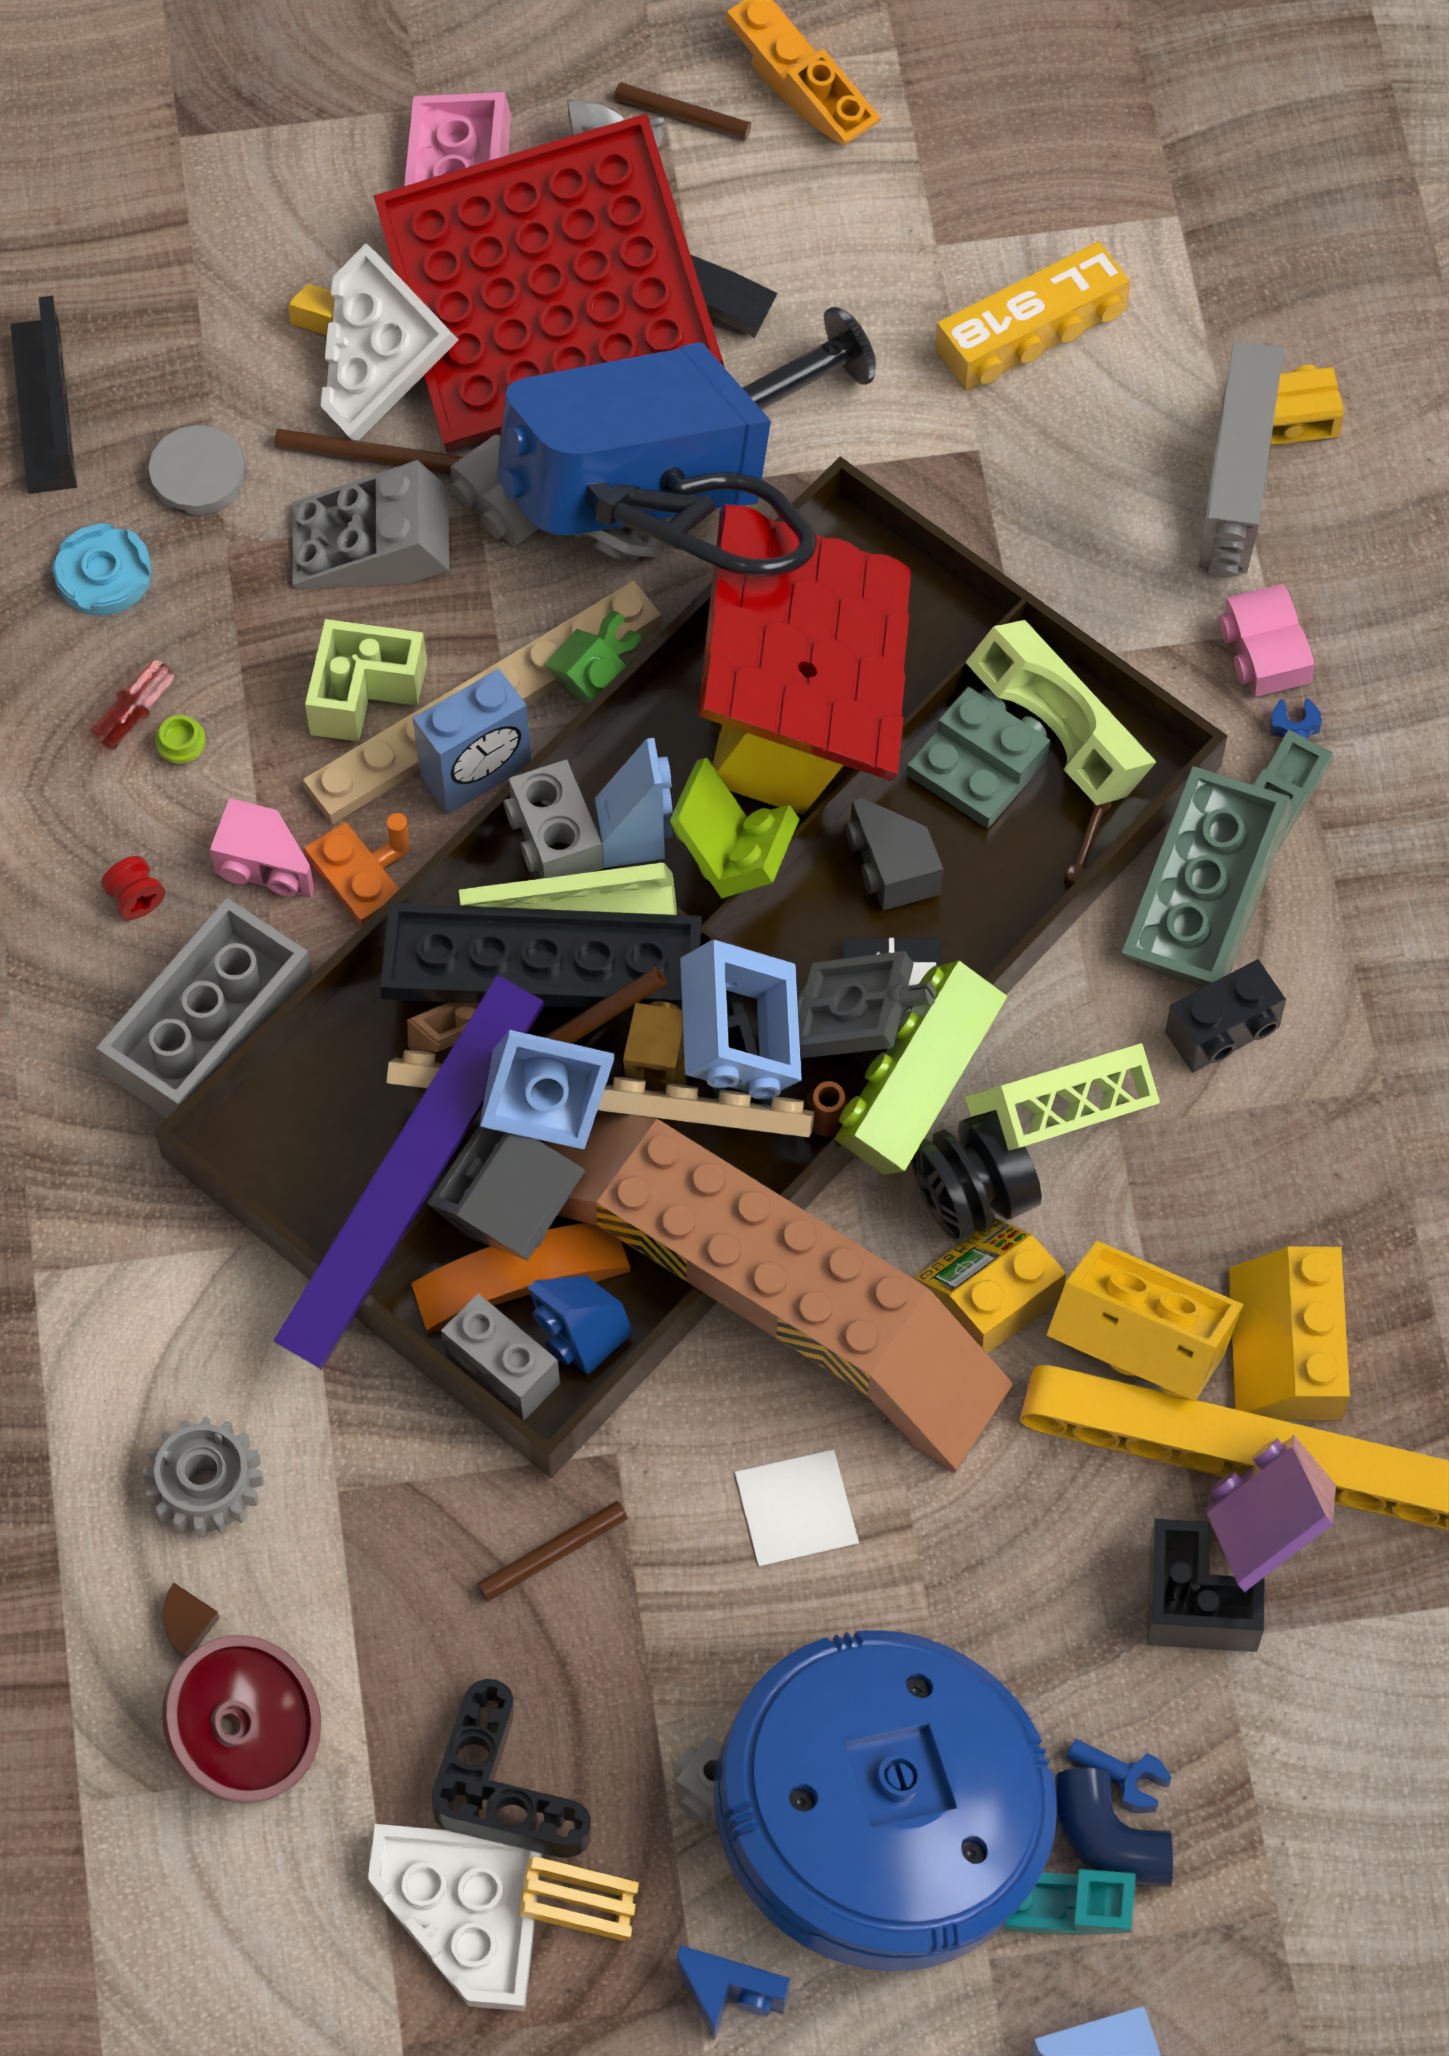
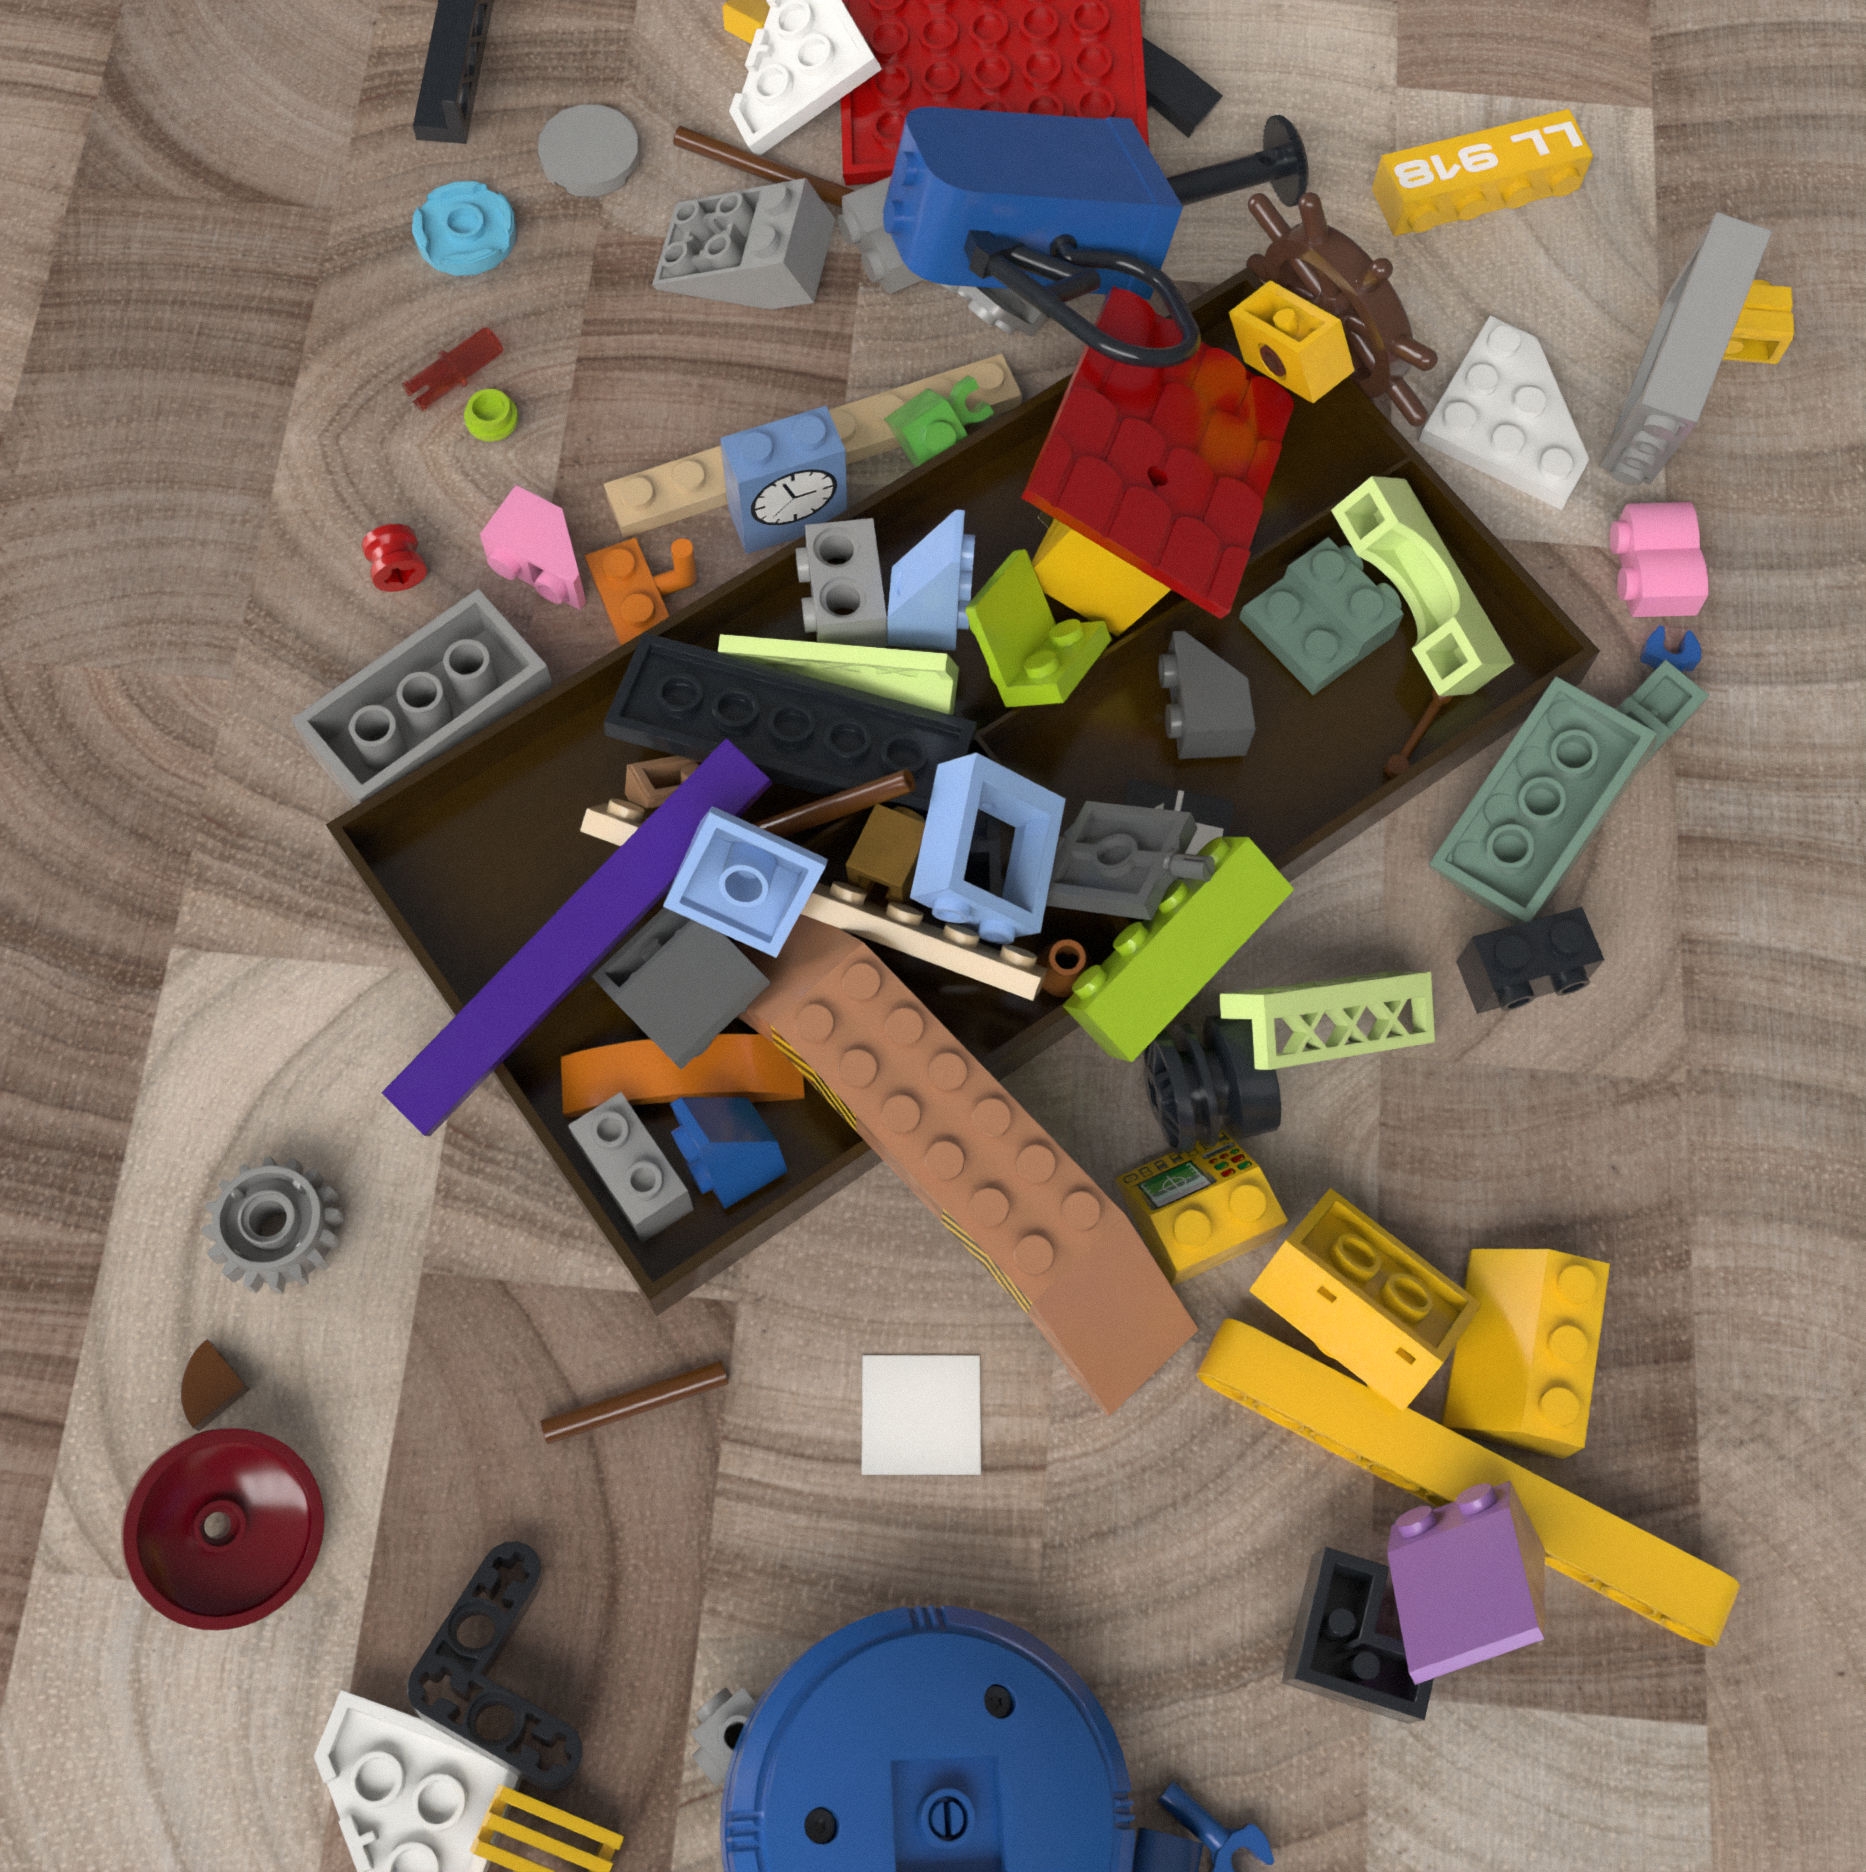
camera: 10 degrees right, 5 degrees up
(360, 665) = (688, 379): yellowish green brick -> none
(920, 491) = (1326, 313): none -> reddish brown brick
(1107, 538) = (1509, 417): none -> white plate

